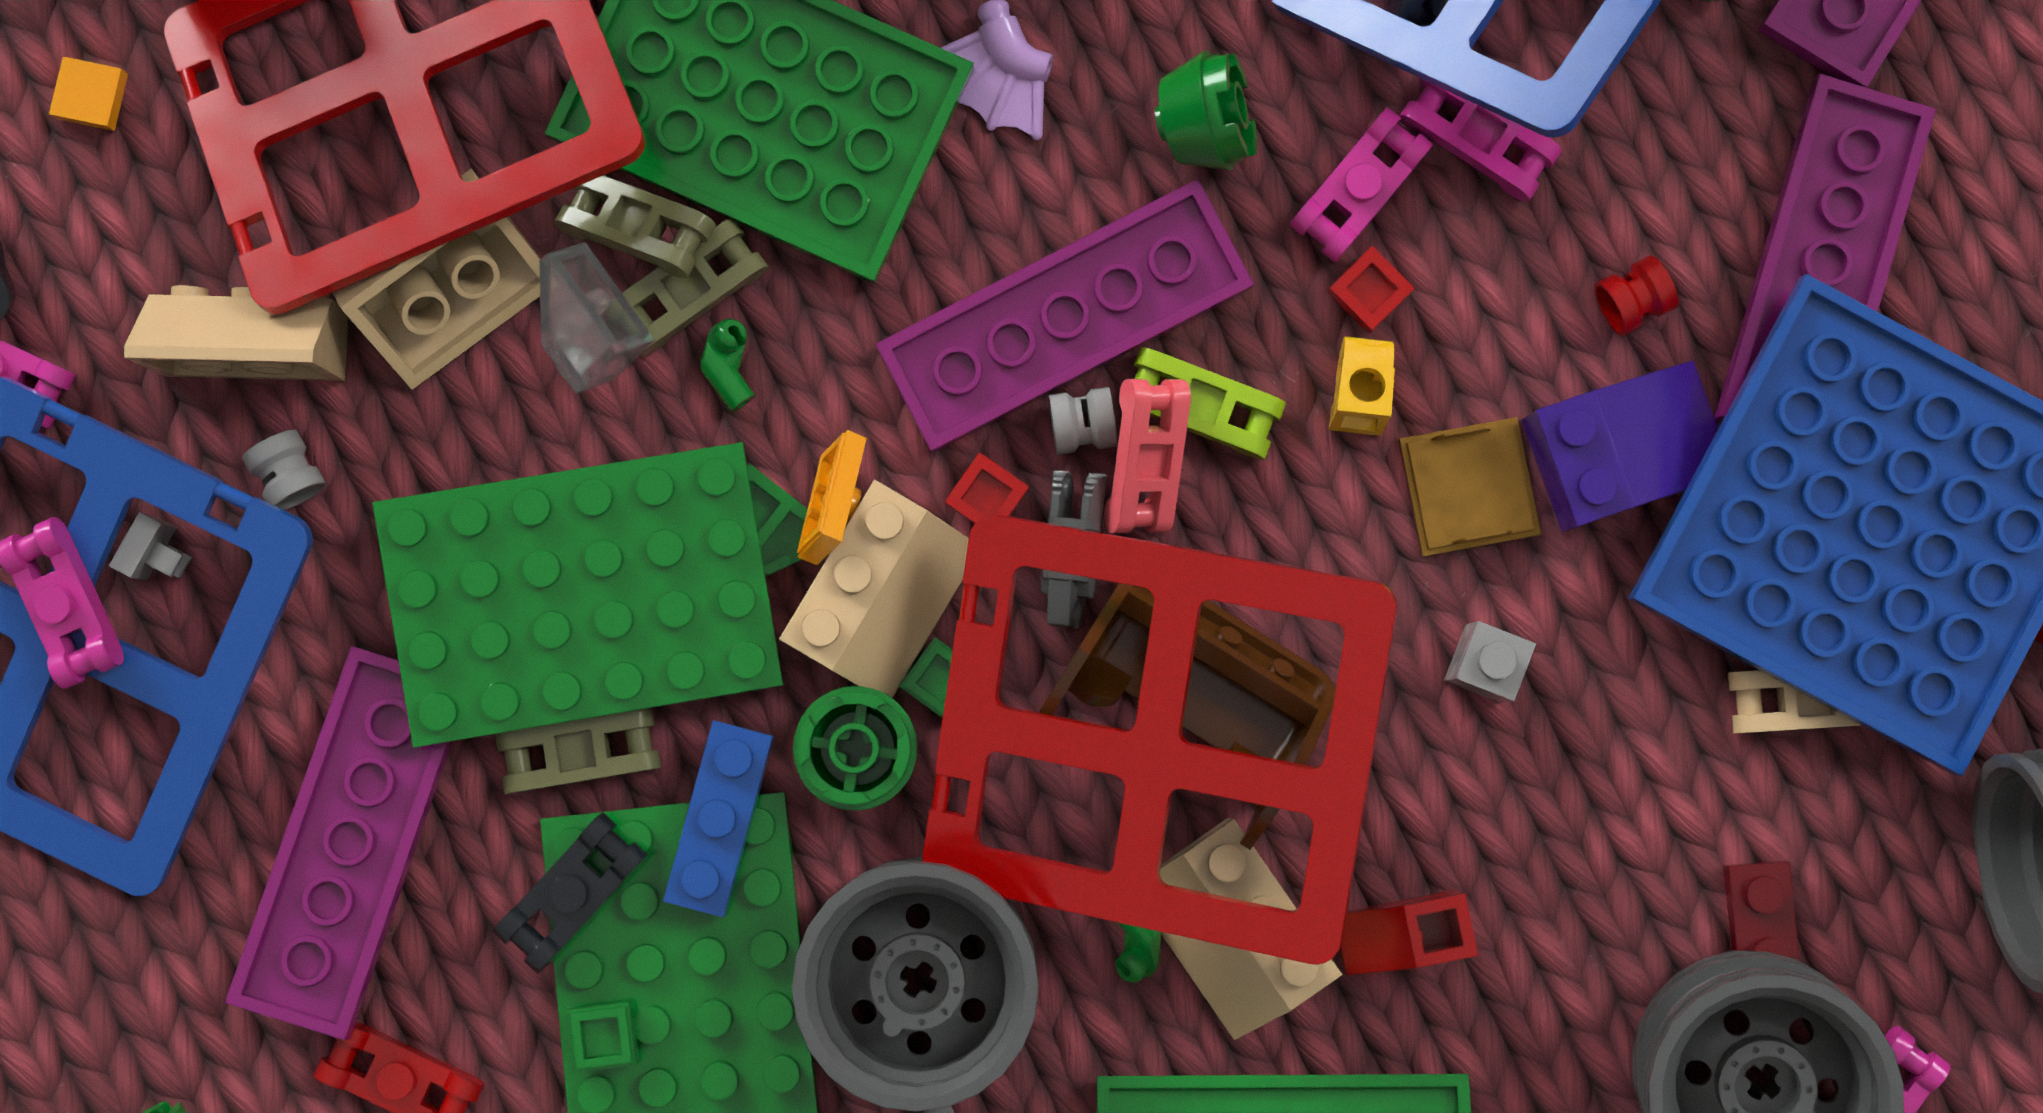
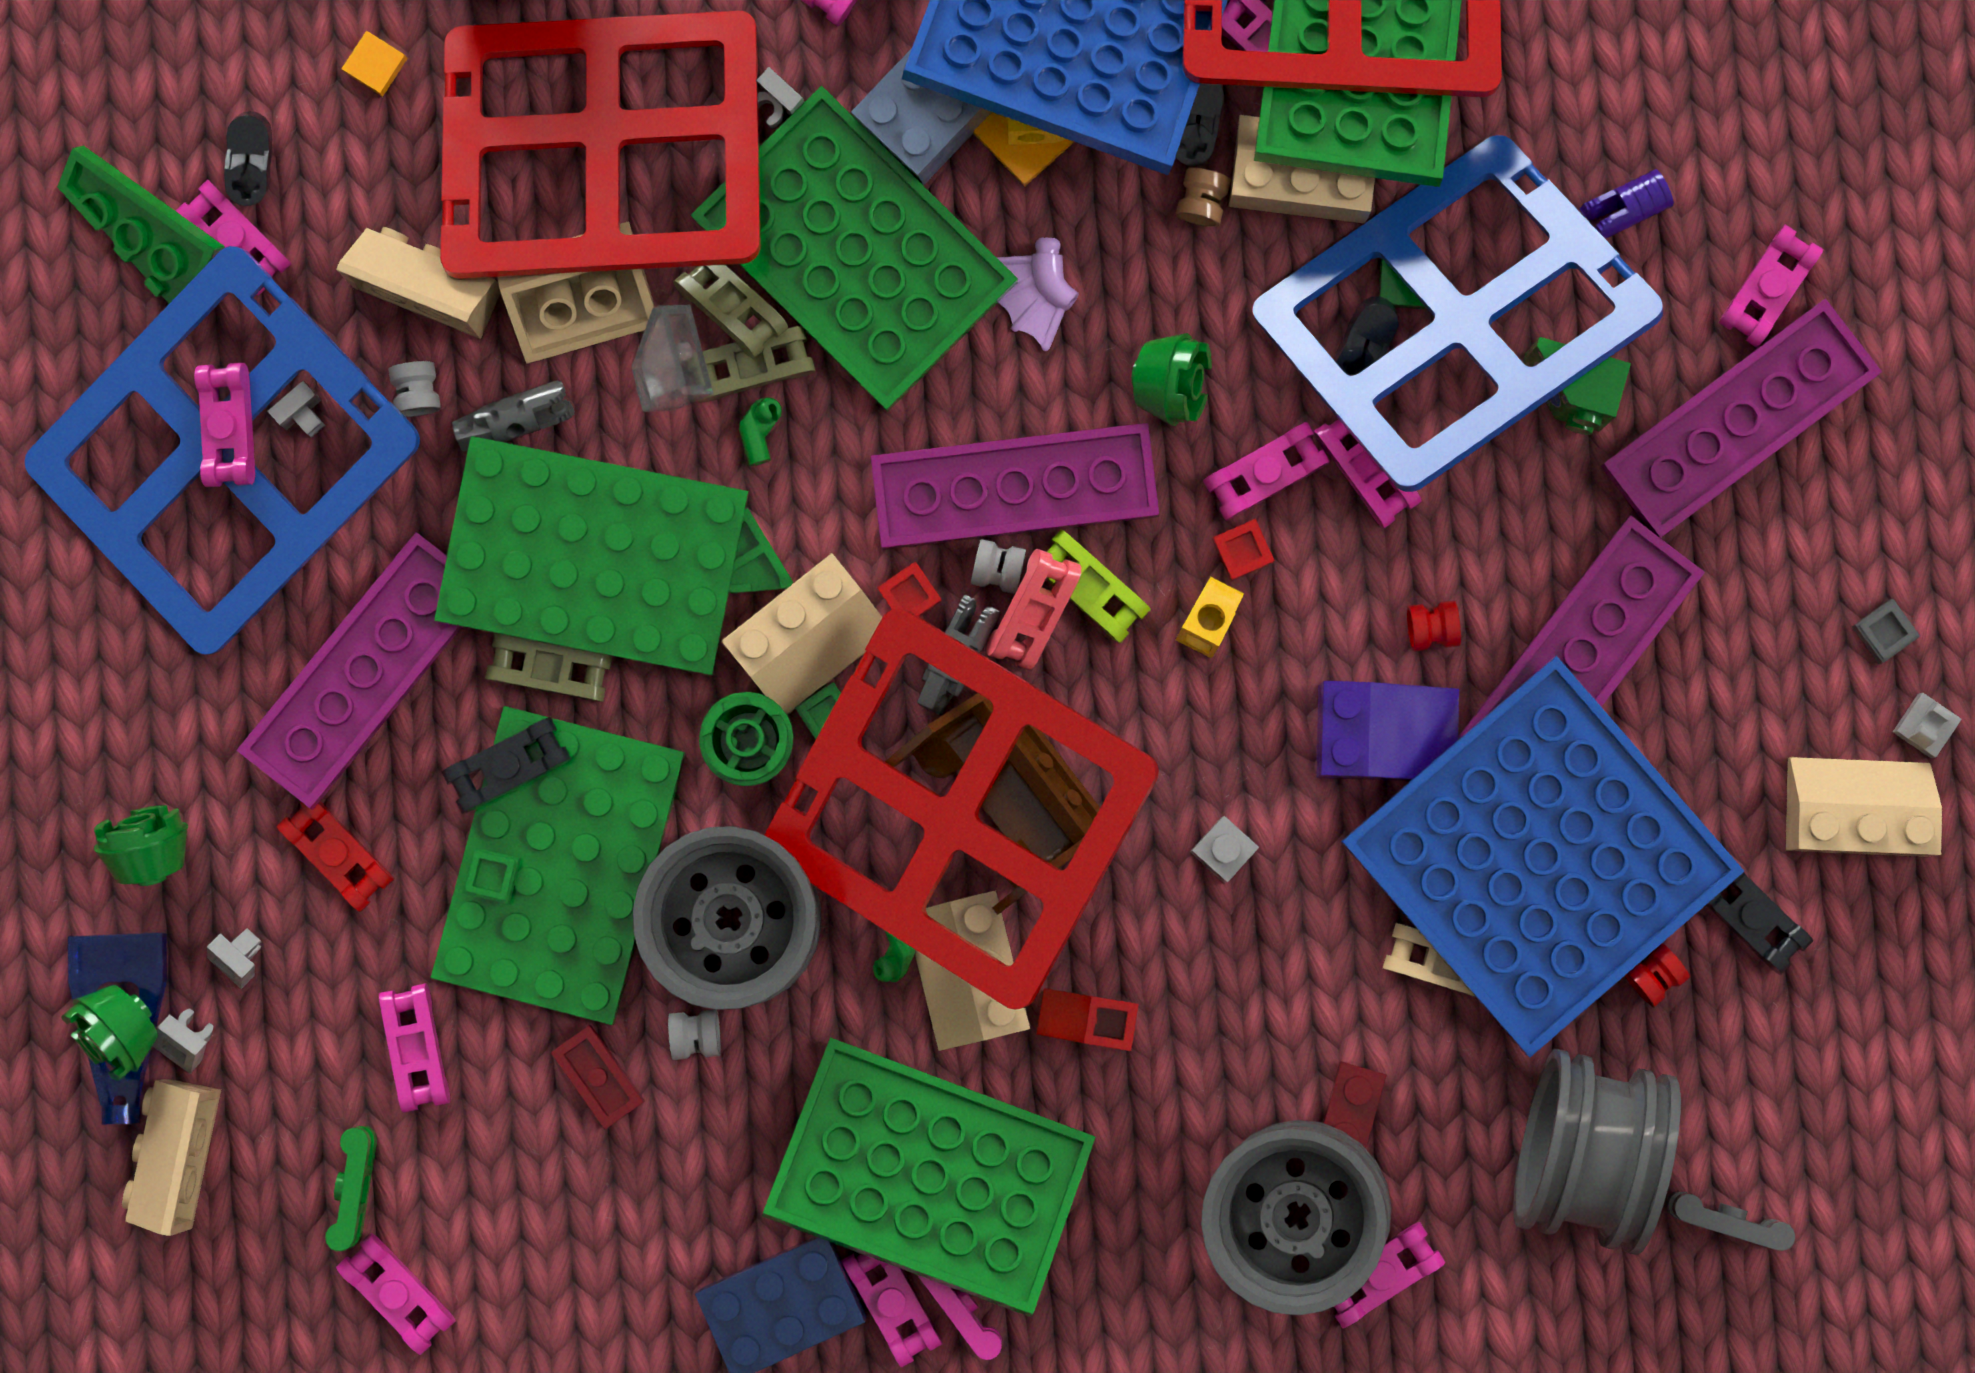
camera: 25 degrees right, 0 degrees up
(422, 456) = (515, 415): none -> dark grey hinge
(718, 818) = (631, 752): blue plate -> none
(832, 497) = (797, 555): light orange plate -> none
(1469, 486) = (1262, 719): pearl gold piece -> none

